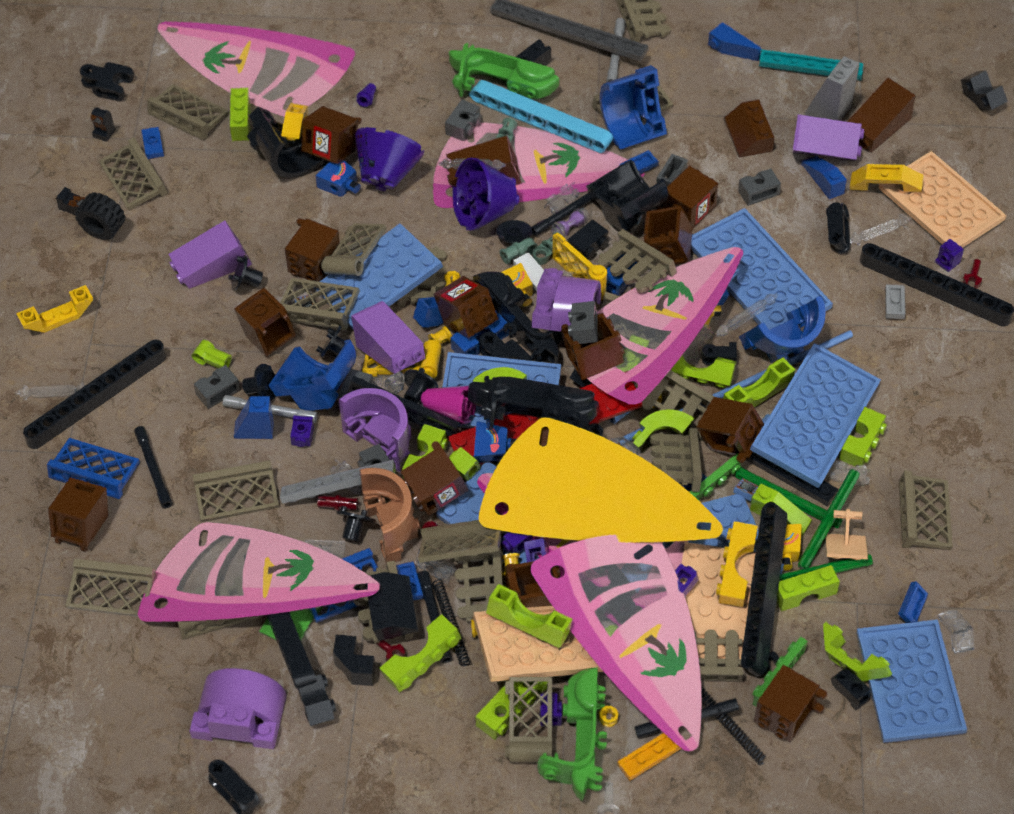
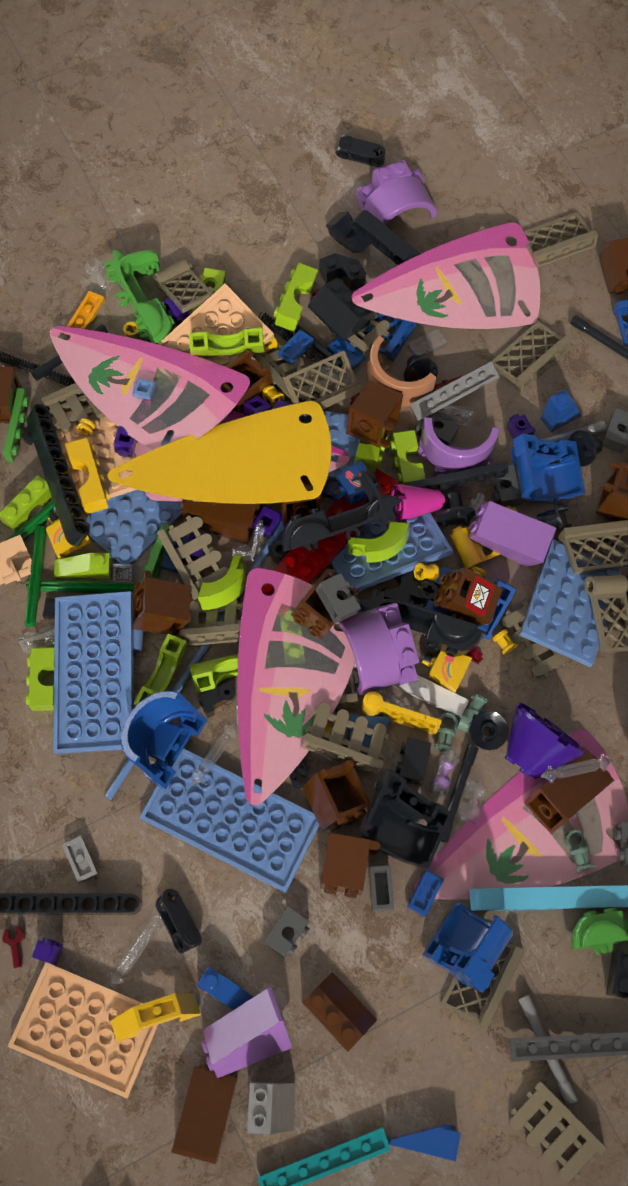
camera: 145 degrees right, 15 degrees up
(457, 602) = (295, 346): none -> blue plate
(482, 349) = (428, 572): none -> yellow bush
(637, 613) = (144, 389): none -> medium blue tile
(713, 619) = (85, 427): none -> yellow bush

